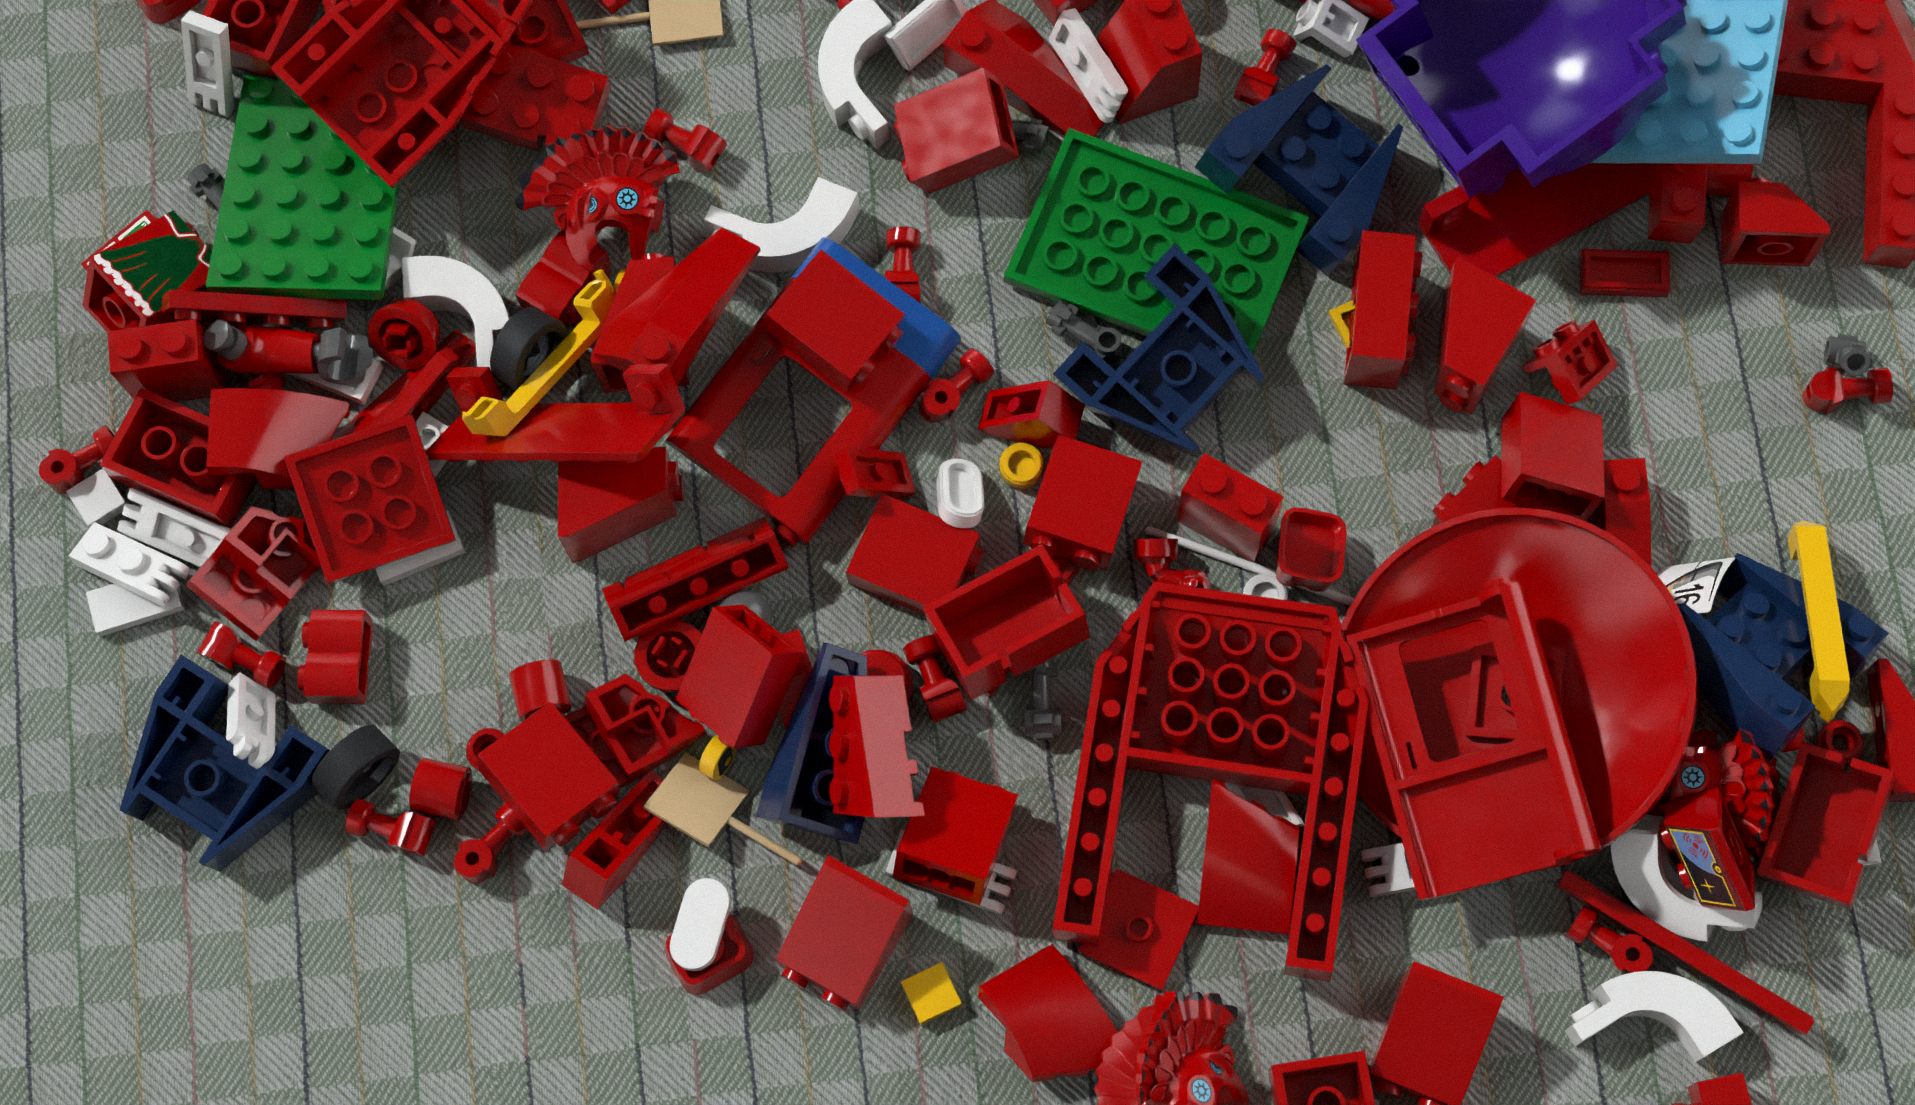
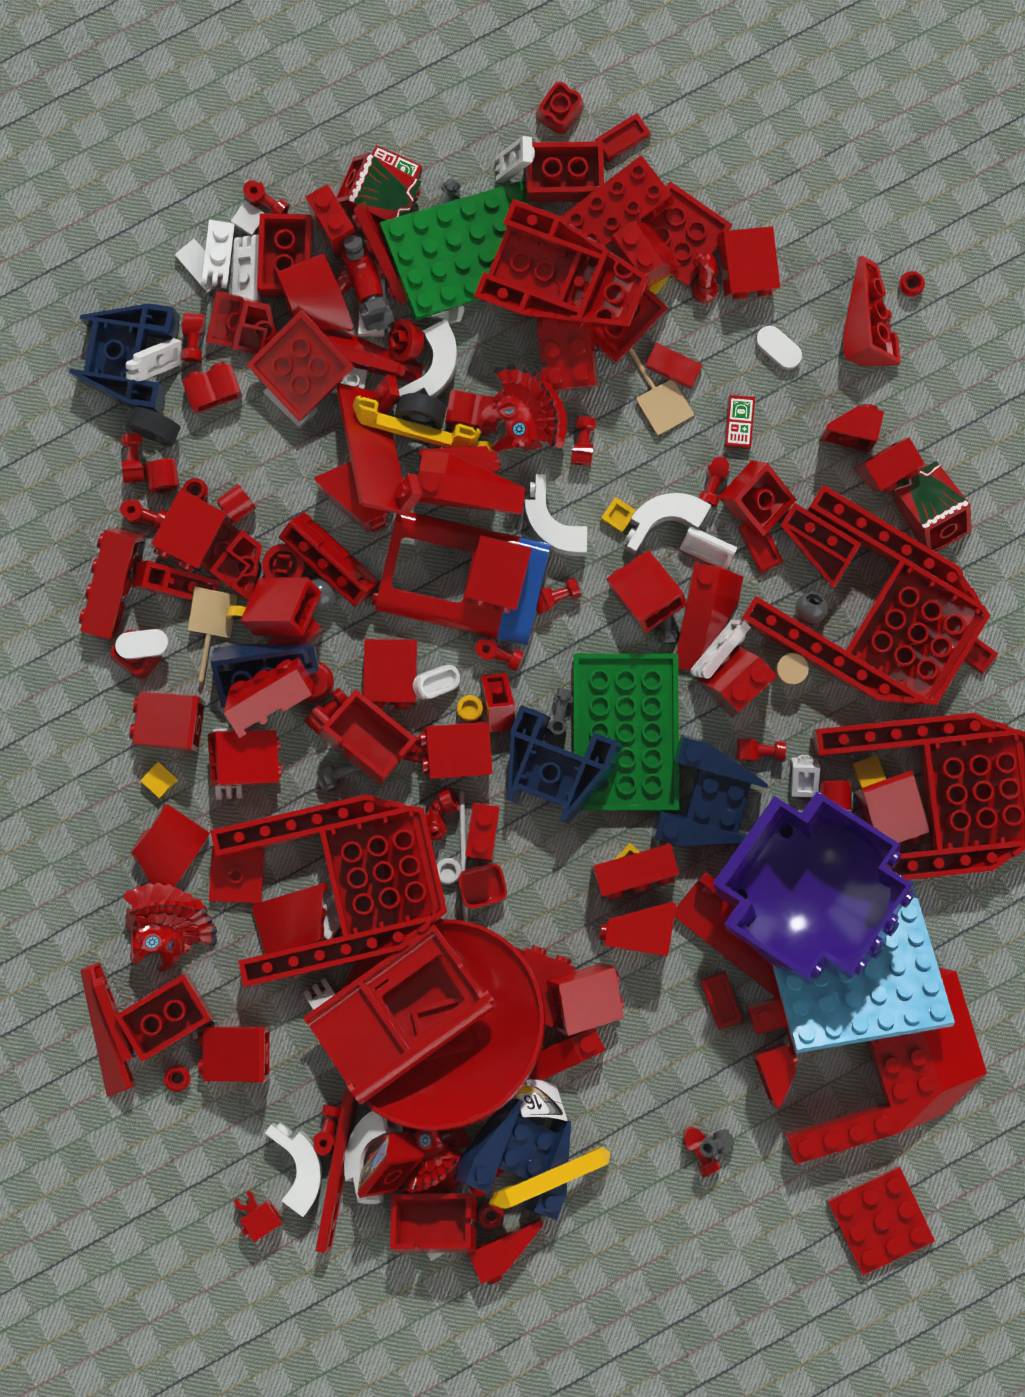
camera: 60 degrees right, 10 degrees up
(578, 938) = (110, 582): none -> red wedge
(819, 136) = (618, 515): none -> yellow tile
(874, 473) = (427, 631): red plate -> none
(1575, 358) = (650, 990): red bracket -> none

